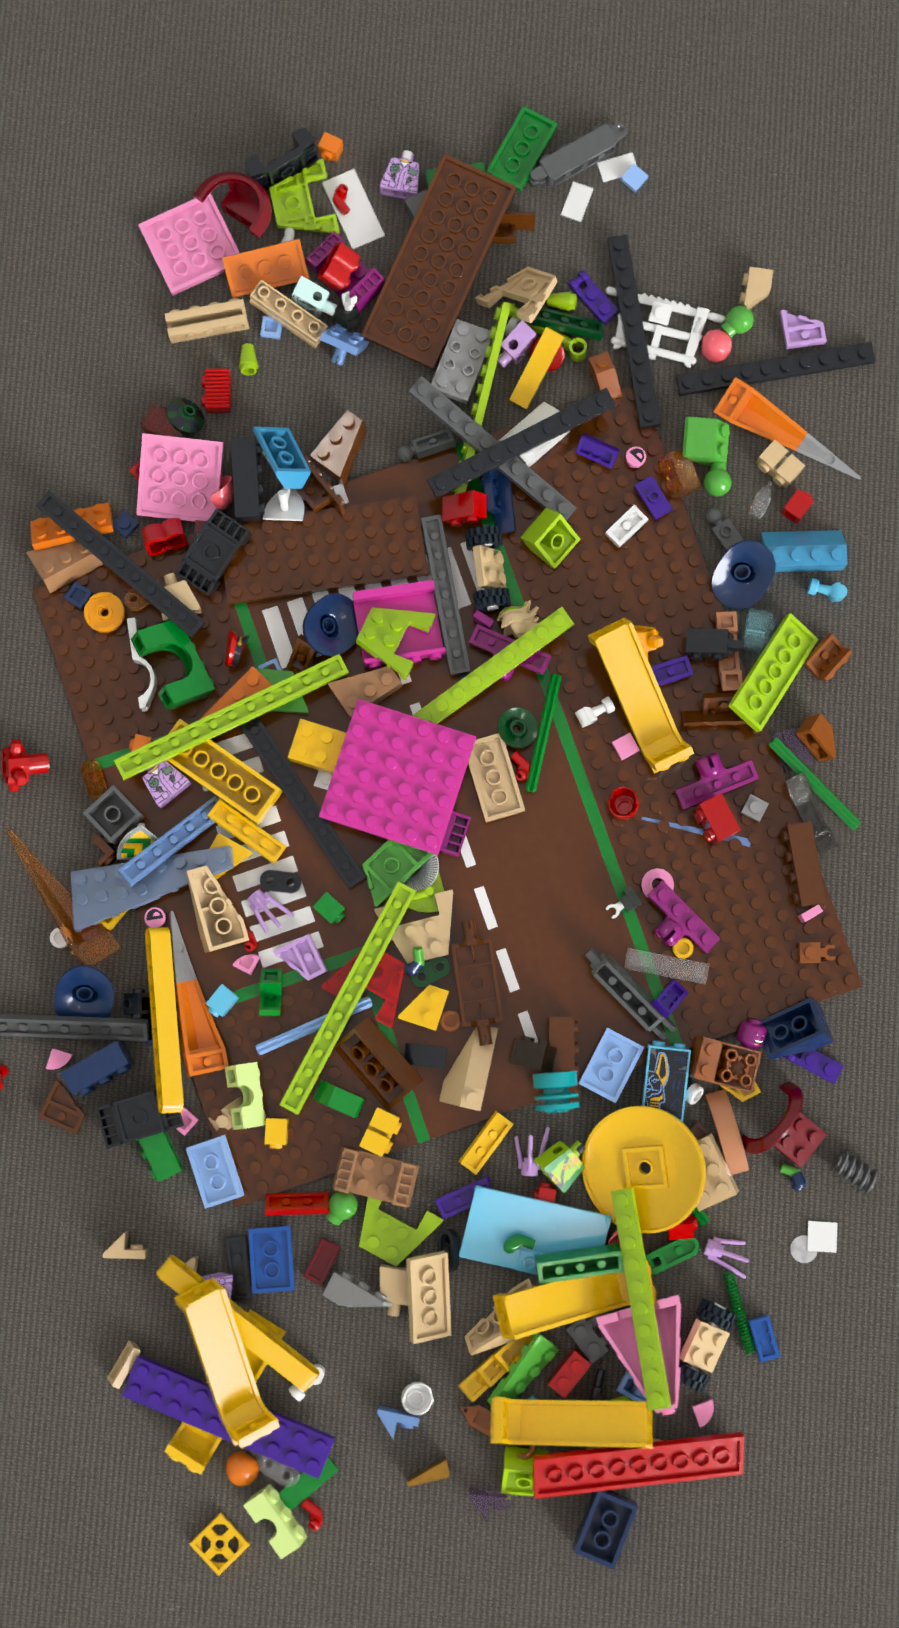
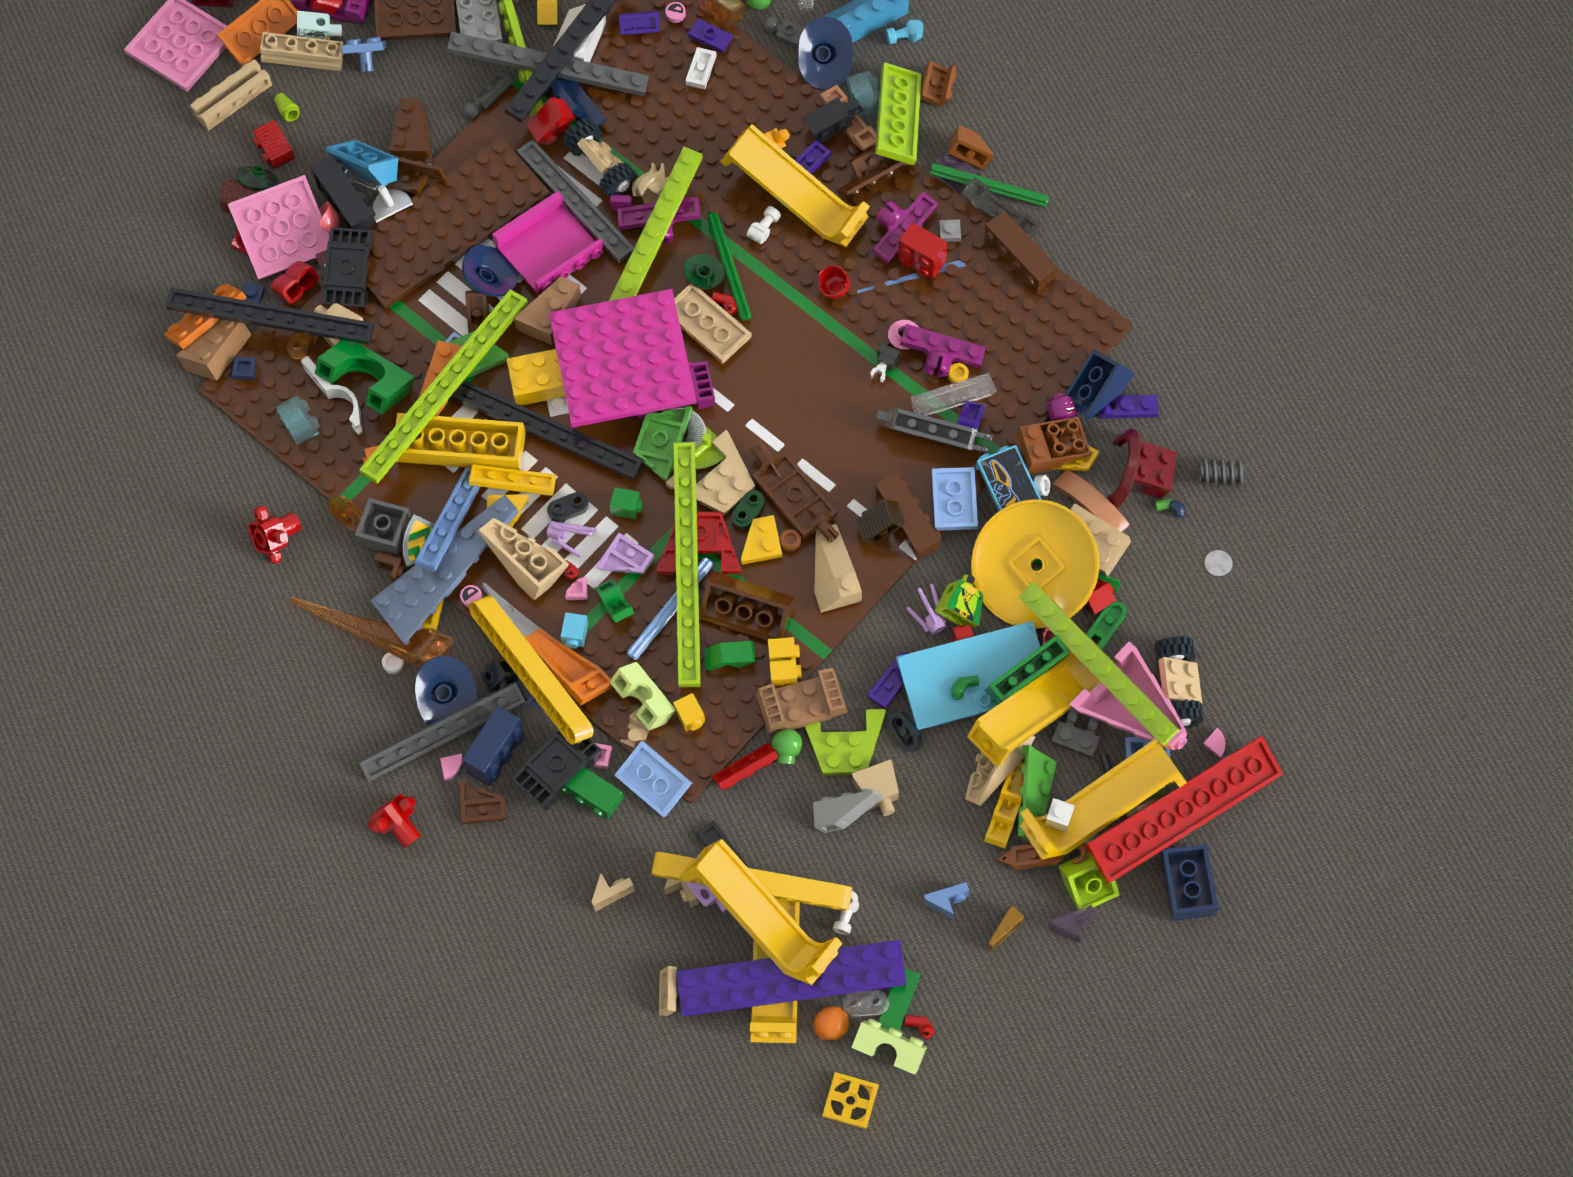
camera: 25 degrees left, 15 degrees down
(96, 670) = (297, 419): none -> clear light blue brick
(97, 604) = (274, 361): light orange plate -> none
(165, 783) = (413, 478): lavender torso -> none
(234, 648) = (411, 336): piece -> none
(270, 328) = (291, 74): light blue tile -> none
(271, 1259) = (750, 827): blue plate -> none
(322, 1261) = (797, 806): dark red tile -> none
(347, 313) = (353, 26): pearl dark grey piece -> none
(384, 632) = (540, 255): lime wing -> none
(417, 1398) = (953, 869): white hair -> none
(418, 962) = (731, 504): arm -> none
(425, 1055) = (786, 577): black slope -> none
(428, 1297) = (911, 775): tan plate -> none
(485, 1142) = (883, 624): yellow plate -> none
(528, 1414) = (1059, 815): none -> white brick
(550, 537) = (640, 109): lime slope -> none
(555, 1091) = (917, 532): teal wheel -> none
(568, 1372) = (1075, 771): red brick -> none
(625, 746) = (807, 240): bright pink tile -> none
(714, 1249) = (1140, 601): lavender plant -> none
(742, 1311) = (1196, 649): green piece -> none
(763, 1338) = (1229, 652): blue plate -> none
(810, 913) = (1050, 286): bright pink tile -> none
(811, 952) = (1074, 318): dark orange plate -> none
(822, 1236) = (1227, 544): white sticker -> none

